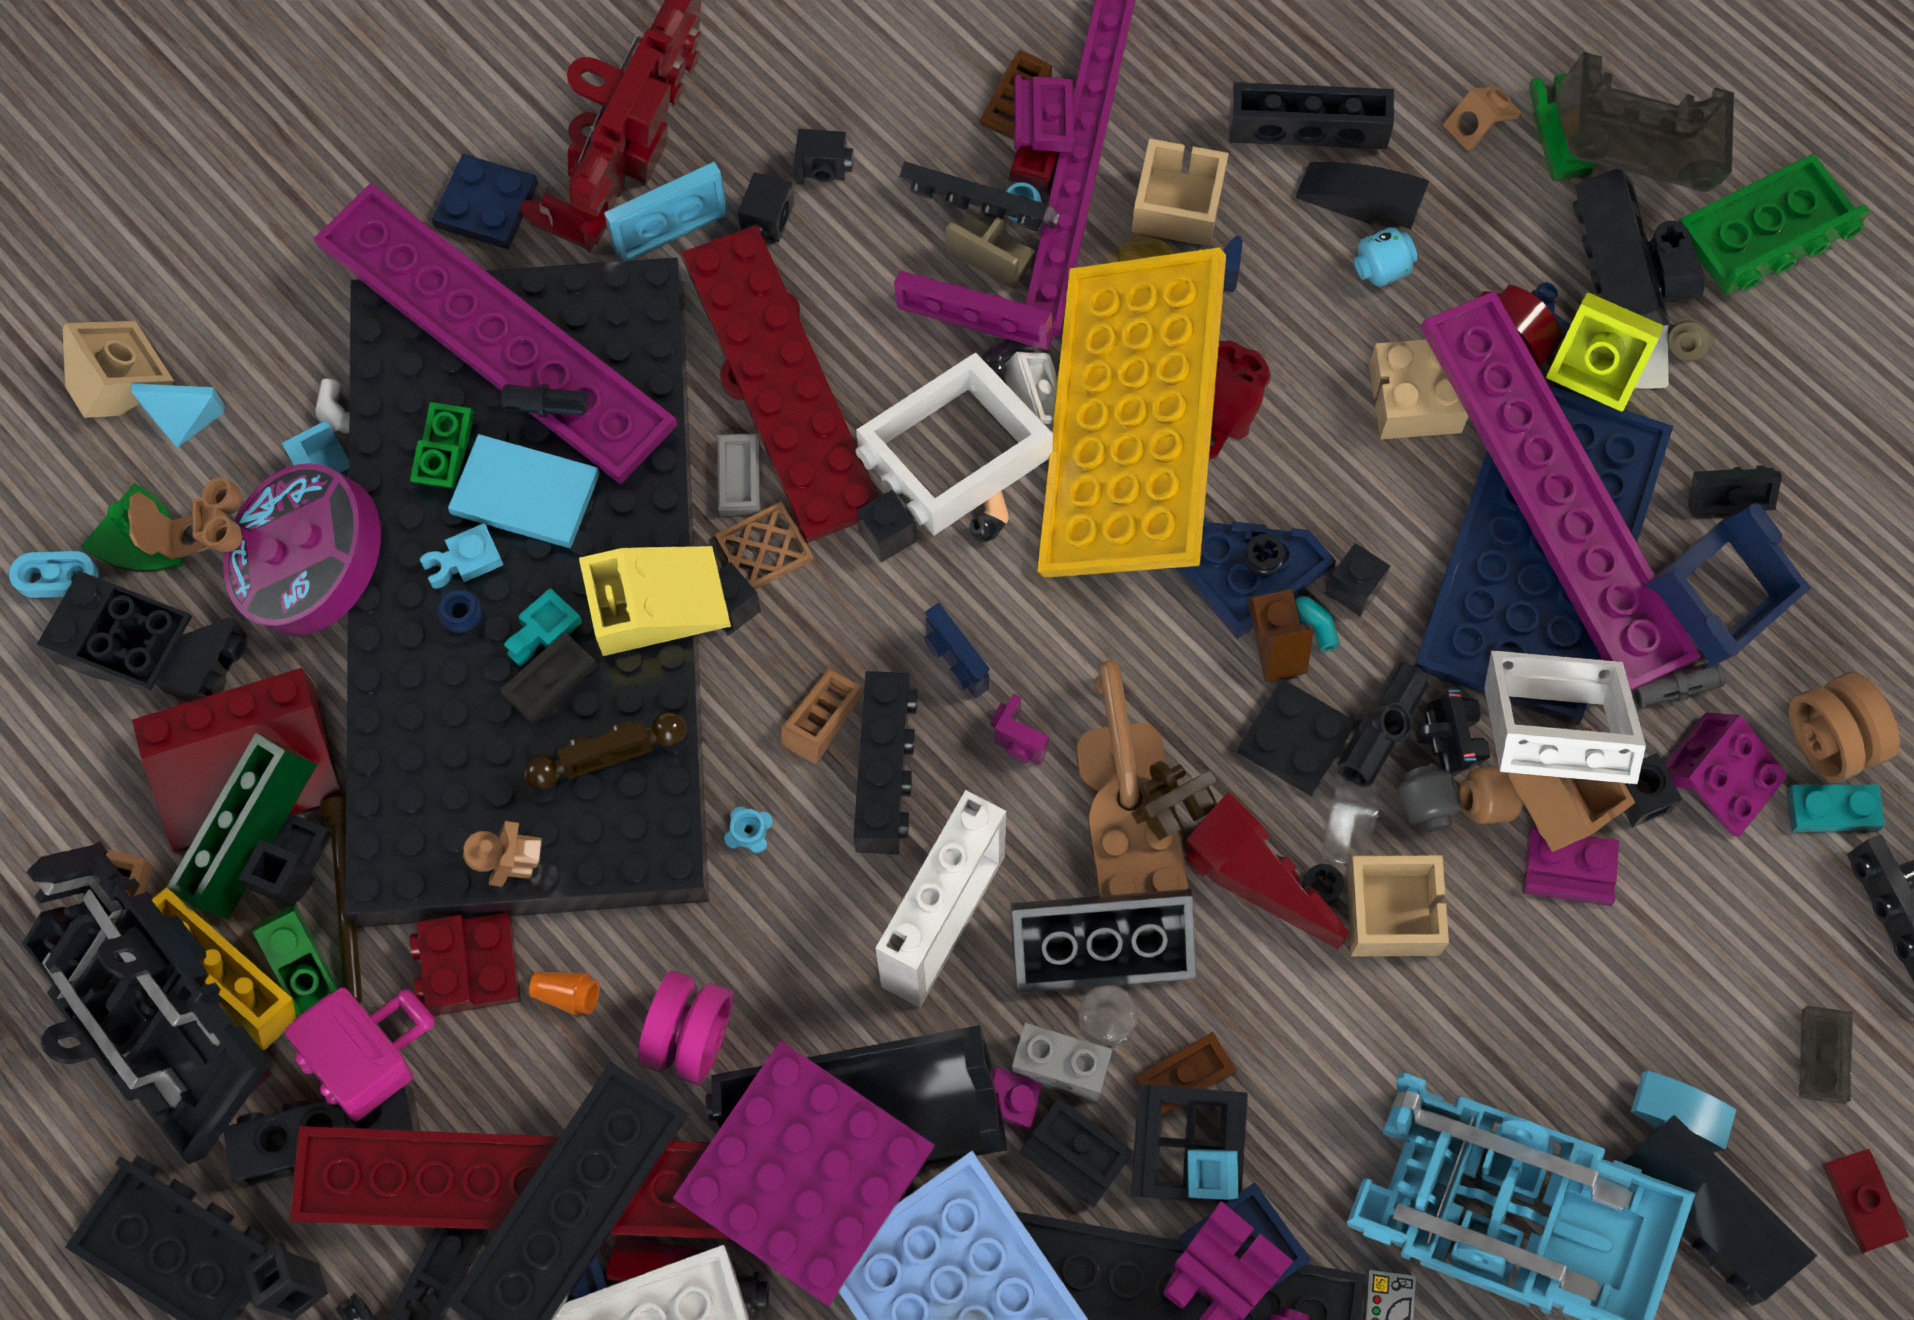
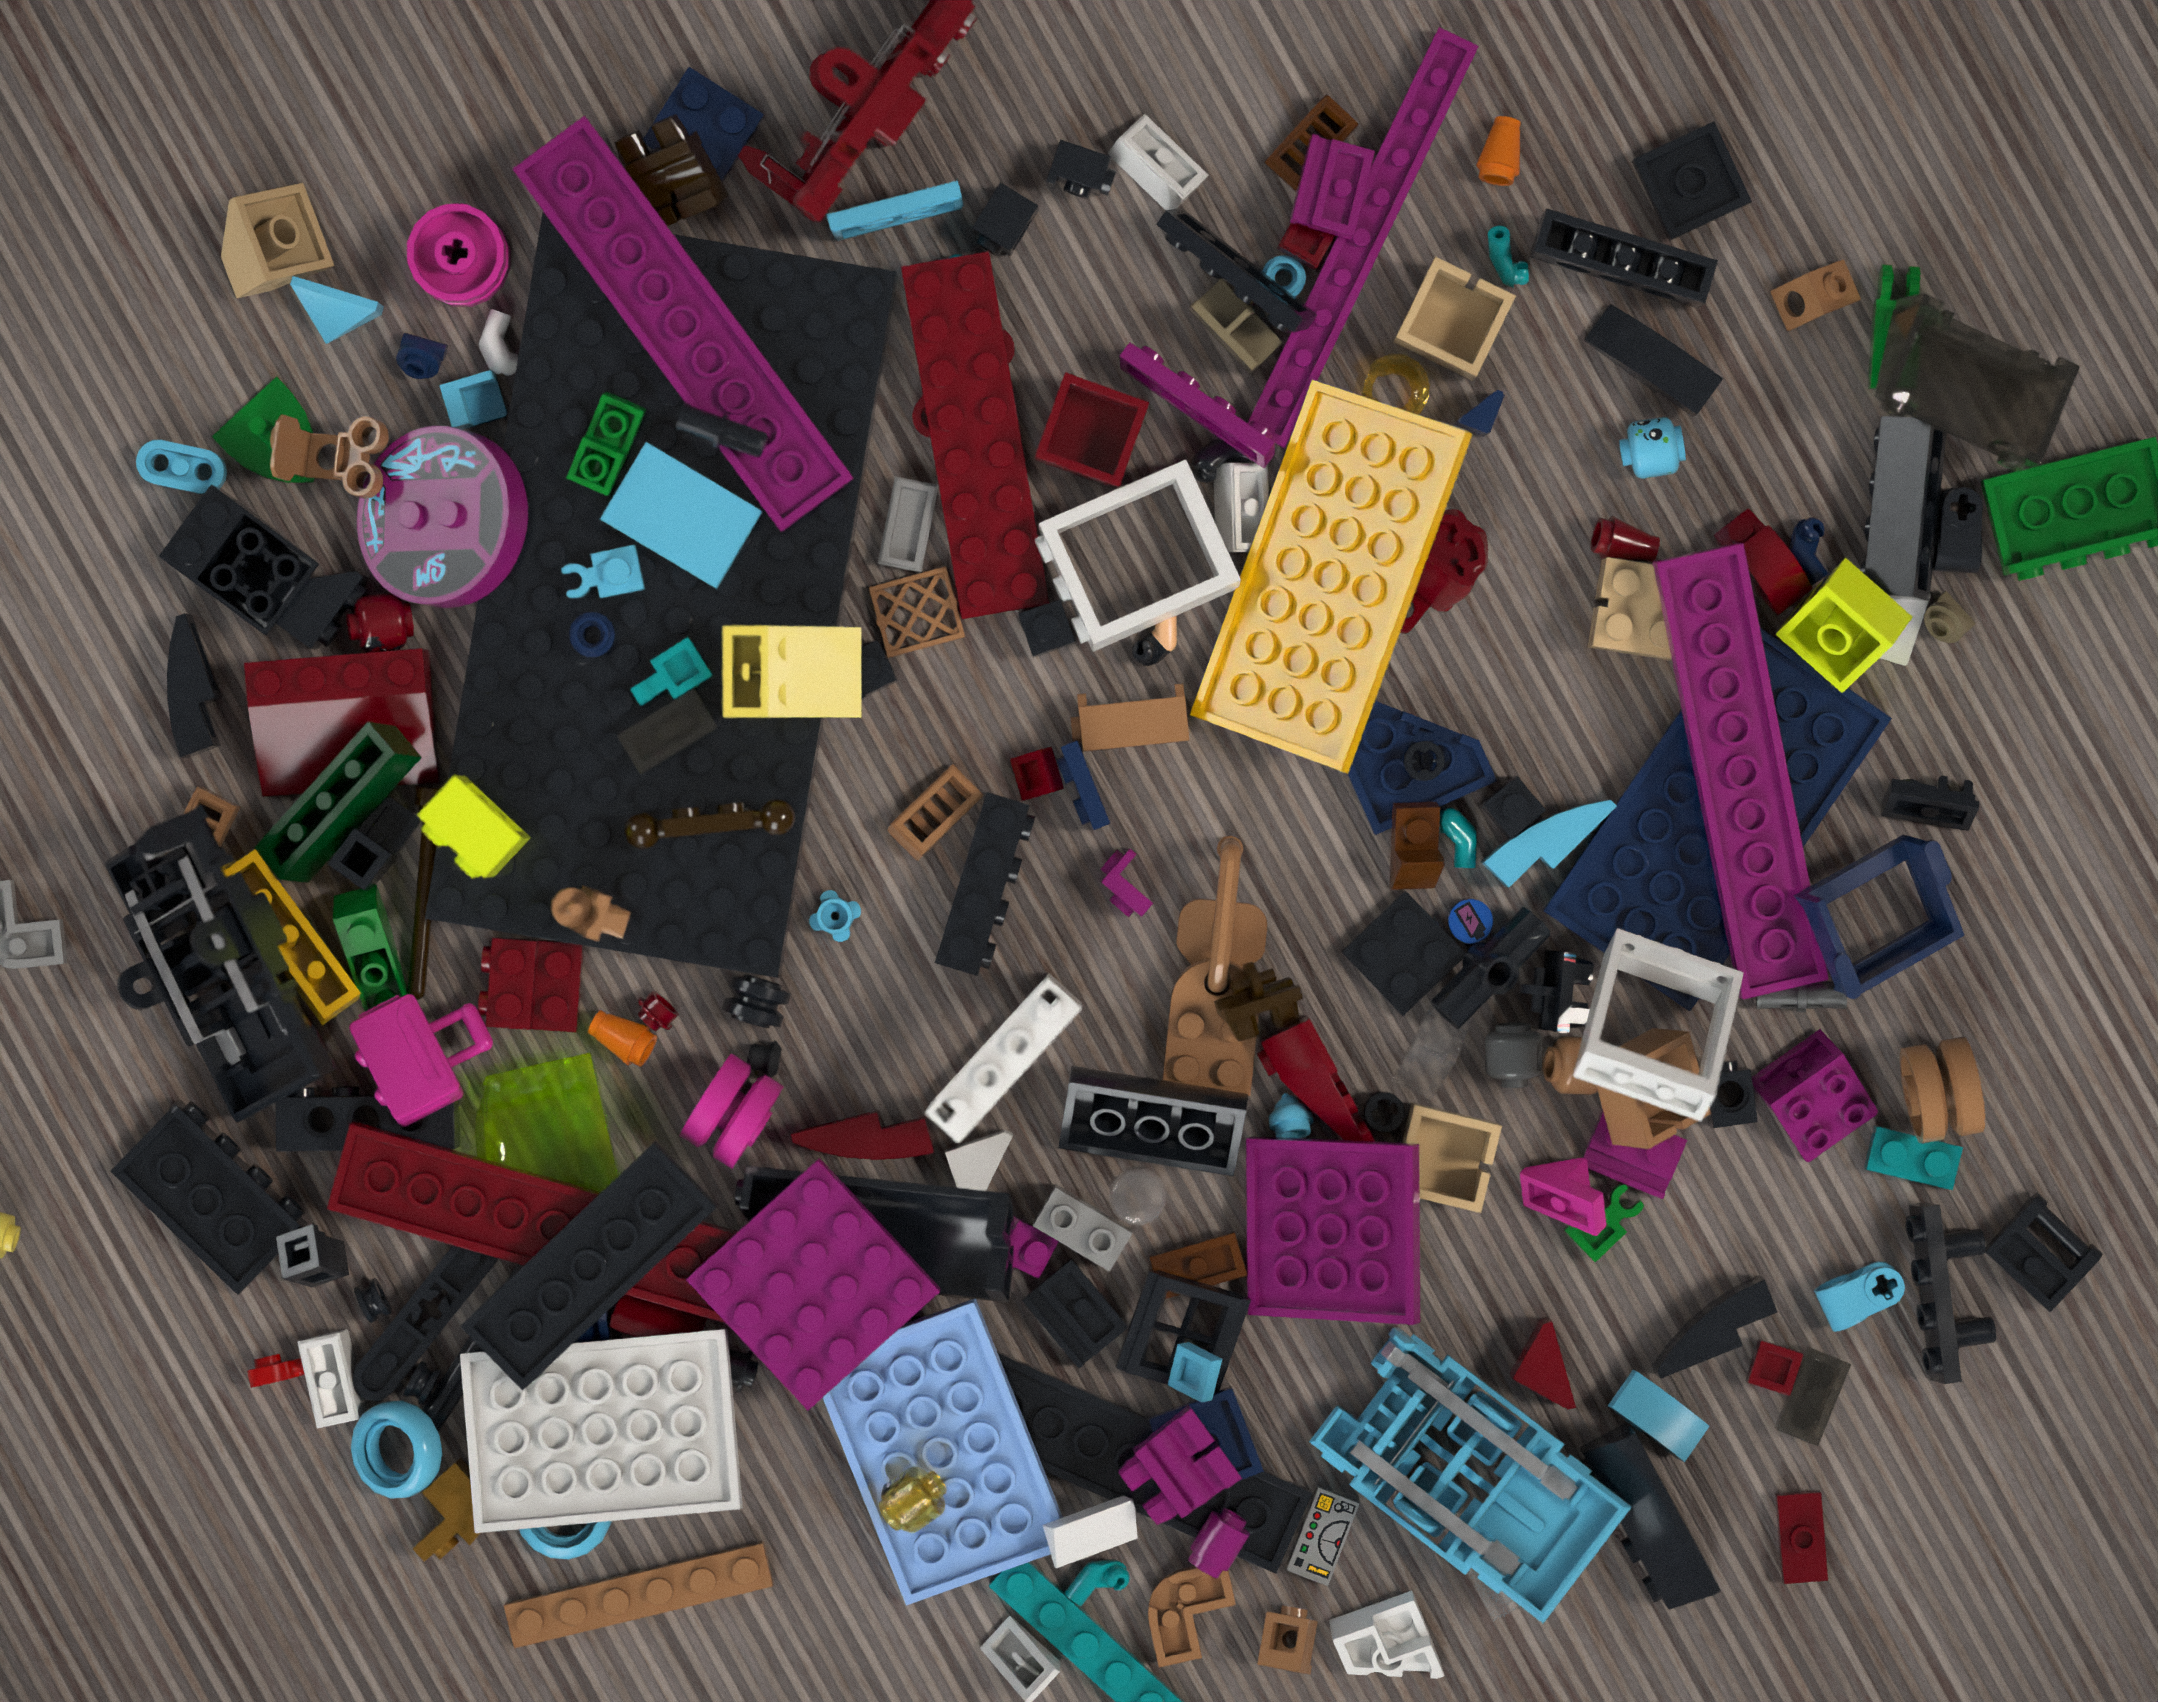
camera: 15 degrees right, 20 degrees up
(87, 767) = (190, 689): none -> black slope
(259, 658) = (380, 623): none -> dark red head
(263, 435) = (420, 356): none -> dark blue plate
(283, 338) = (440, 236): none -> dark pink wheel
(373, 799) = (472, 827): none -> neon yellow brick
(465, 222) = (675, 176): none -> dark brown hips
(503, 1083) = (548, 1122): none -> clear neon green slope
(594, 959) = (657, 1011): none -> dark red plate
(688, 921) = (756, 1001): none -> black wheel
(705, 974) = (765, 1058): none -> black piece
(827, 1030) = (866, 1138): none -> dark red slope
(884, 350) = (1091, 431): none -> dark red piece
(886, 141) = (1157, 163): none -> white slope
(909, 652) = (1036, 773): none -> dark red plate
(942, 1014) = (977, 1160): none -> white slope
(988, 588) = (1131, 722): none -> medium nougat brick
(1180, 68) = (1501, 153): none -> orange cone
(1202, 136) = (1501, 258): none -> teal arm
(1236, 913) = (1290, 1118): none -> medium azure plate
(1310, 997) = (1333, 1229): none -> magenta plate
(1348, 50) = (1691, 181): none -> black plate
(1349, 692) = (1470, 921): none -> tile
(1378, 332) = (1623, 541): none -> dark red cone
(1396, 603) = (1545, 840): none -> medium azure slope
(1521, 915) = (1564, 1194): none -> dark pink slope
(1556, 1091) = (1542, 1366): none -> dark red slope
(1562, 941) = (1598, 1245): none -> green plate
(1710, 1008) = (1715, 1327): none -> black slope
(1778, 1035) = (1774, 1367): none -> dark red plate
(1832, 946) = (1851, 1297): none -> medium azure piece

